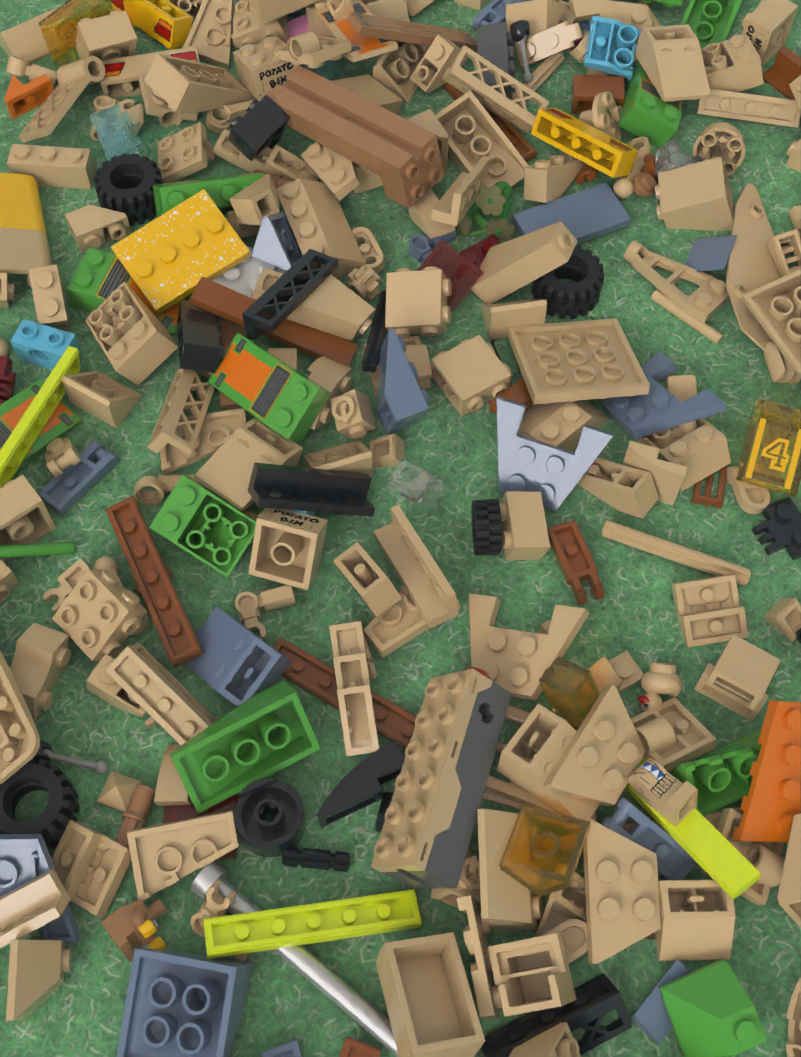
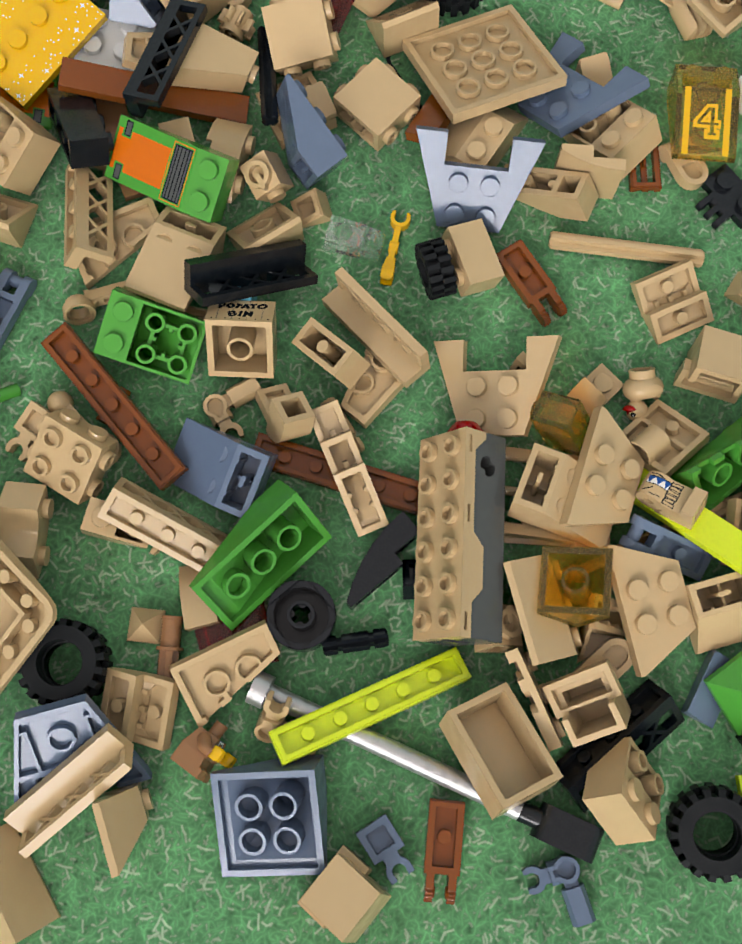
camera: 15 degrees left, 15 degrees up
(46, 753) = (63, 607): light grey hinge -> none
(309, 623) = (285, 412): none -> tan brick
(443, 518) = (388, 266): none -> yellow piece

